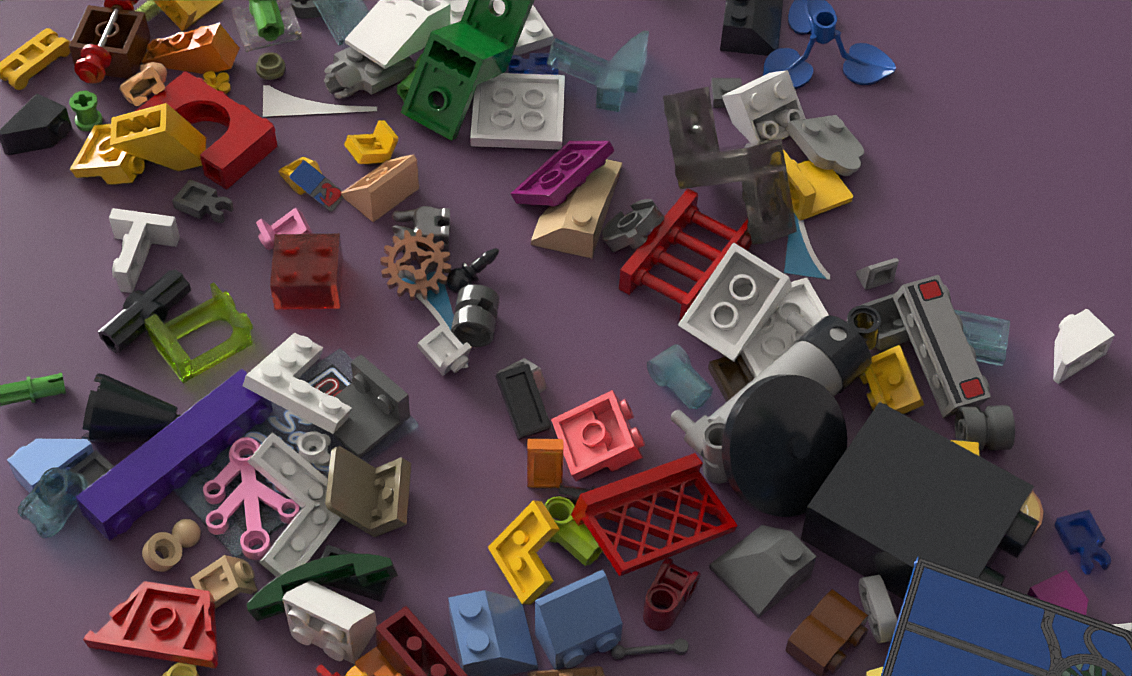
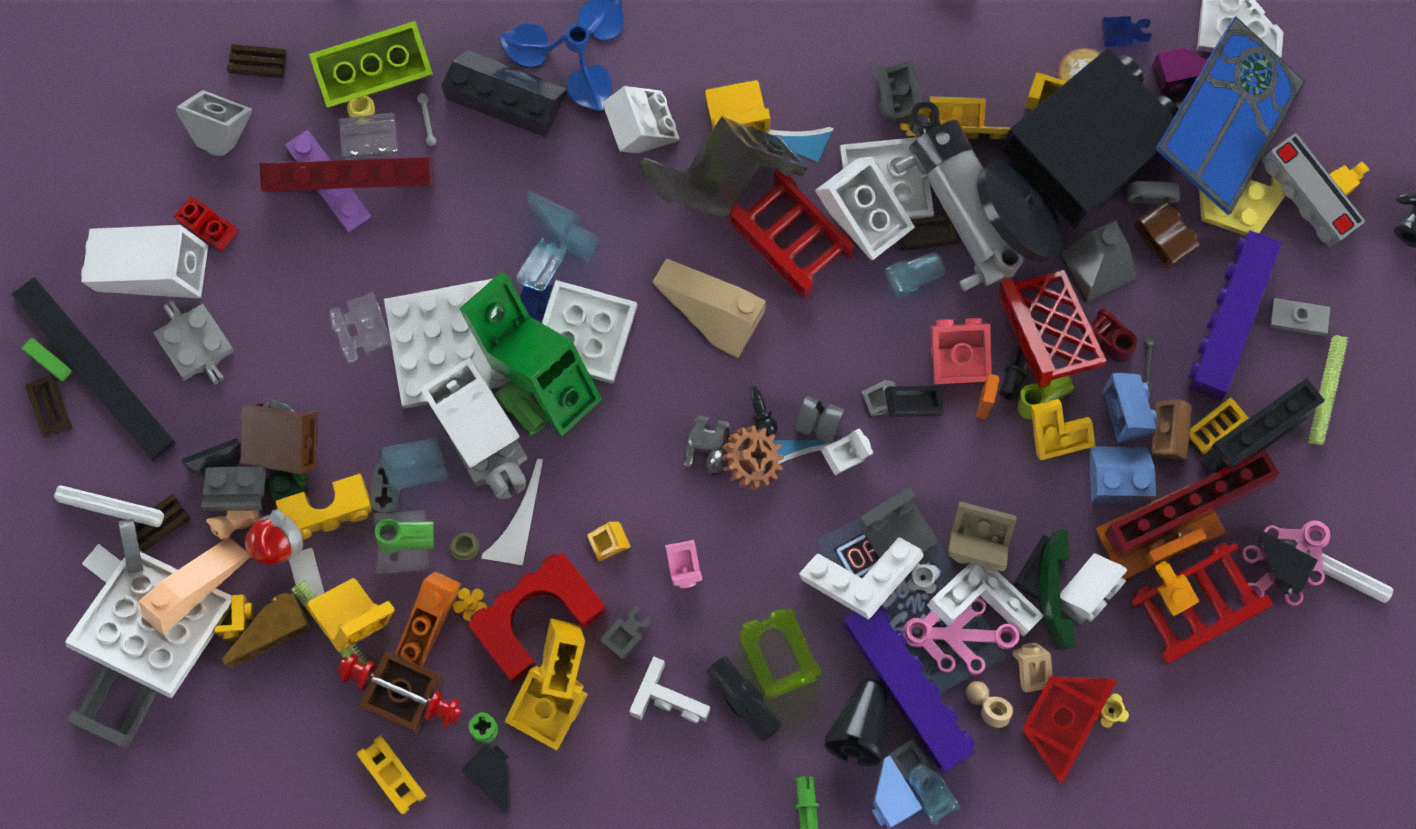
camera: 75 degrees left, 20 degrees up
(148, 81) = (471, 666): light nougat animal -> none
(306, 271) = (735, 551): clear red brick -> none
(317, 185) = (632, 527): sticker -> none
(373, 147) = (597, 468): yellow bracket -> none
(384, 187) = (645, 471): light nougat slope -> none
(562, 173) = (679, 310): magenta plate -> none
(633, 226) = (768, 264): dark grey plate -> none
(721, 86) = (603, 147): dark grey plate -> none
(827, 143) = (695, 80): light grey plate -> none
(878, 273) = (841, 89): light grey slope -> none
(941, 345) = (942, 65): light grey brick -> none
(986, 336) = (924, 39): clear light blue plate -> none
(990, 427) = (1017, 62): dark grey wheel -> none

